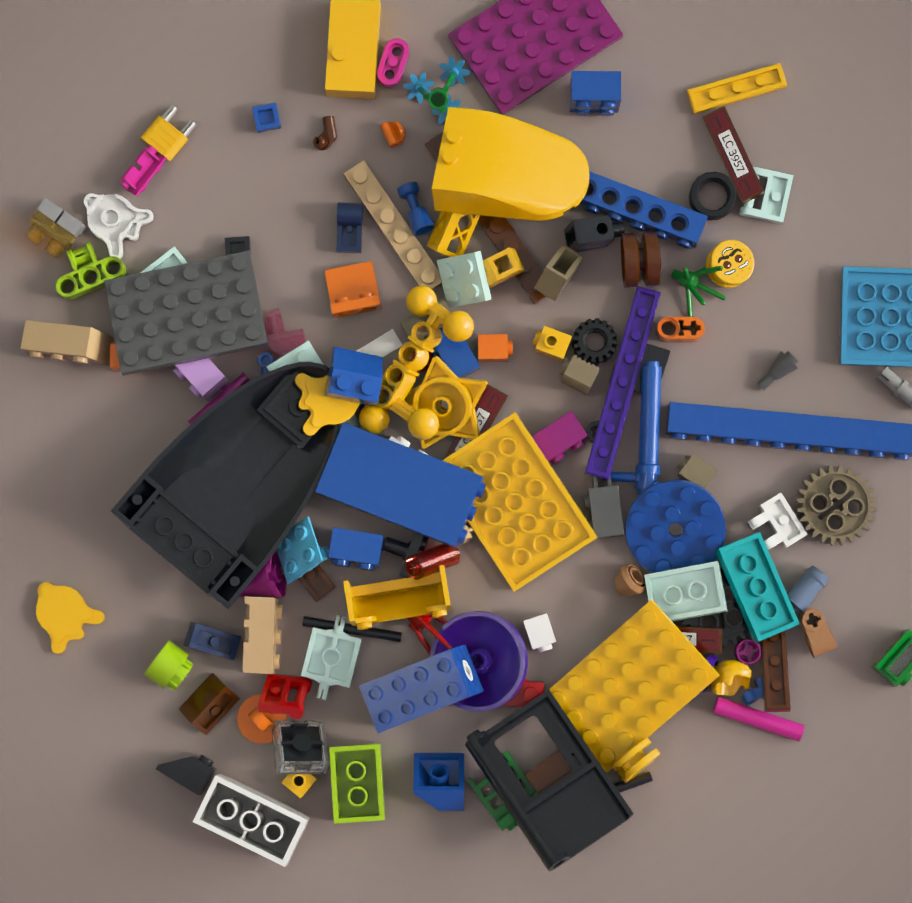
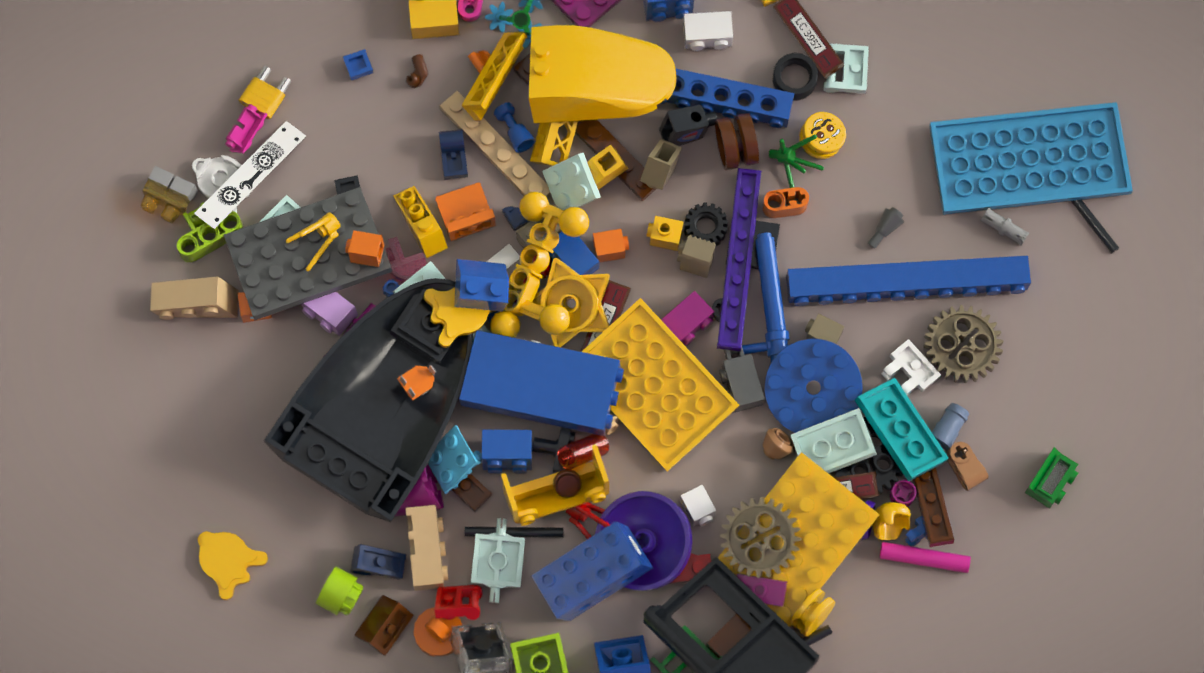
camera: 15 degrees left, 10 degrees down
(140, 219) = (250, 175): none -> white sticker
(206, 289) = (325, 226): none -> yellow plant
(242, 321) = (365, 248): none -> orange brick
(275, 466) = (417, 381): none -> orange piece
(306, 294) = (421, 222): none -> yellow slope
(399, 300) = (514, 217): none -> dark blue tile
(402, 150) = (494, 74): none -> yellow fence
(411, 592) = (567, 483): none -> reddish brown piece
(592, 730) = (768, 590): none -> magenta plate
(602, 701) = (770, 557): none -> dark tan gear
(630, 134) = (708, 30): none -> white brick

